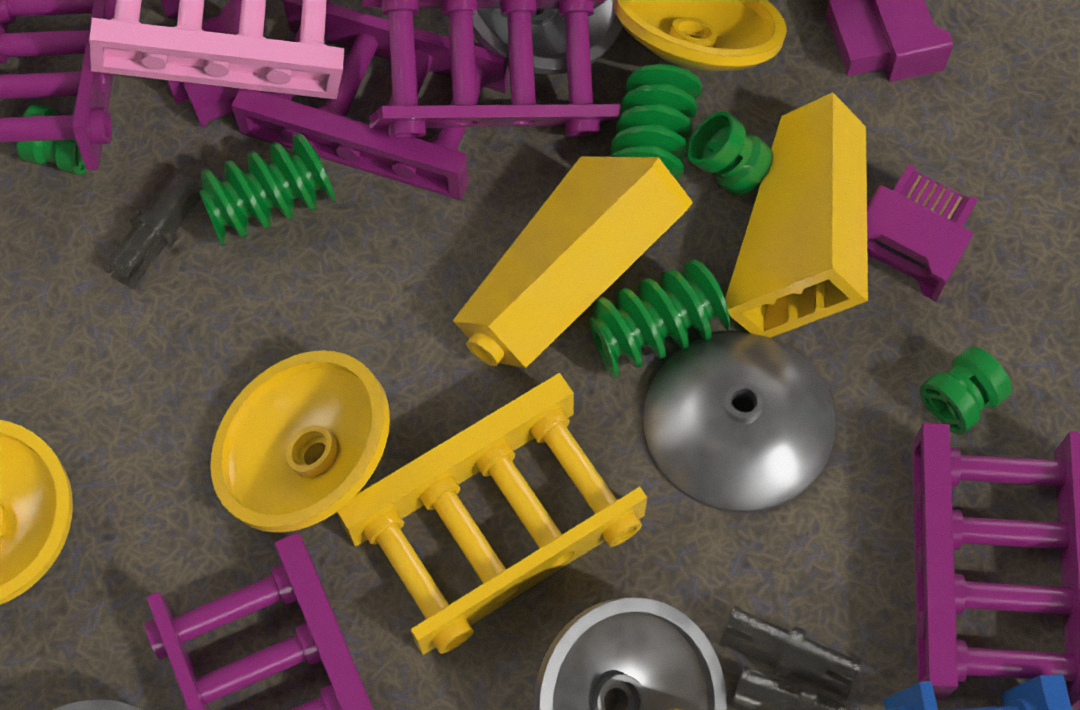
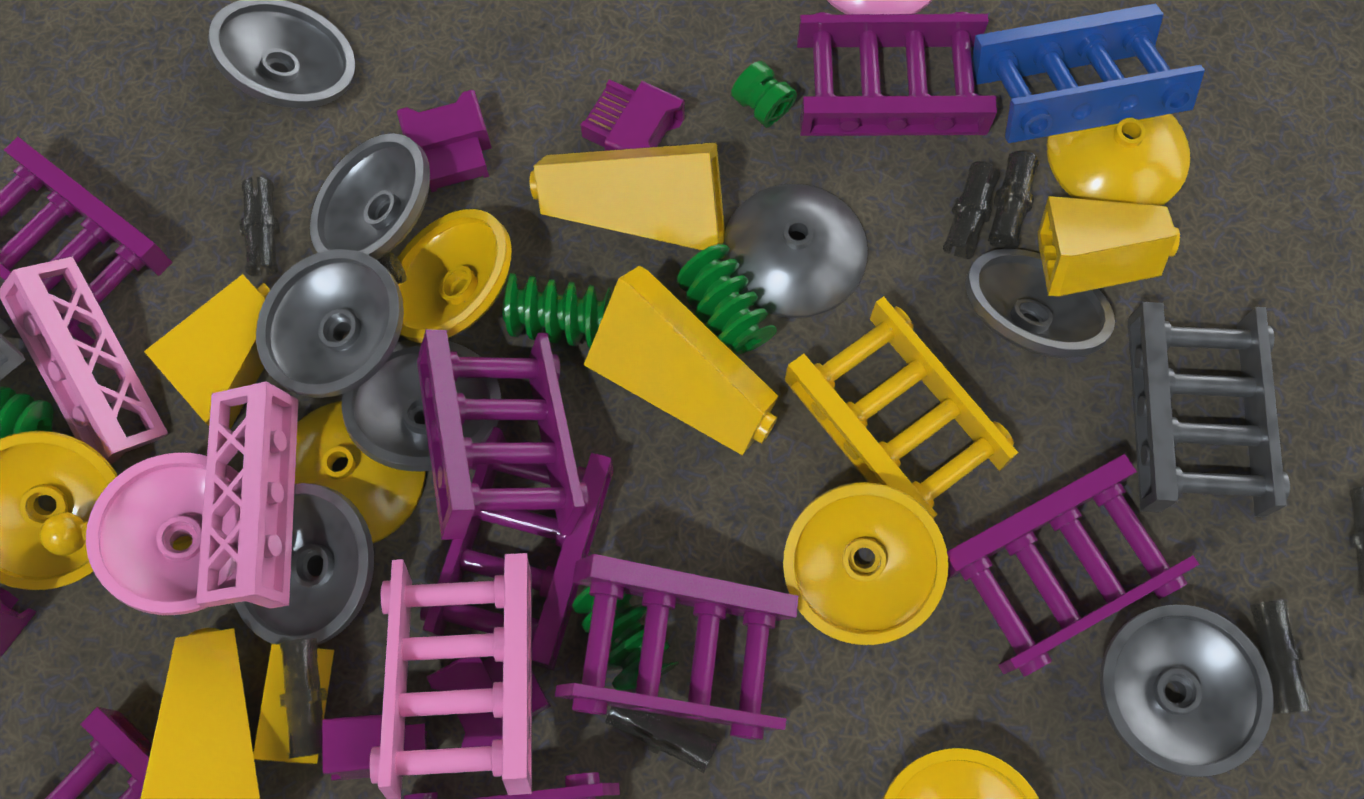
camera: 95 degrees left, 5 degrees up
(273, 265) = (661, 592): none -> magenta fence
(724, 149) = (571, 258): green wheel -> none

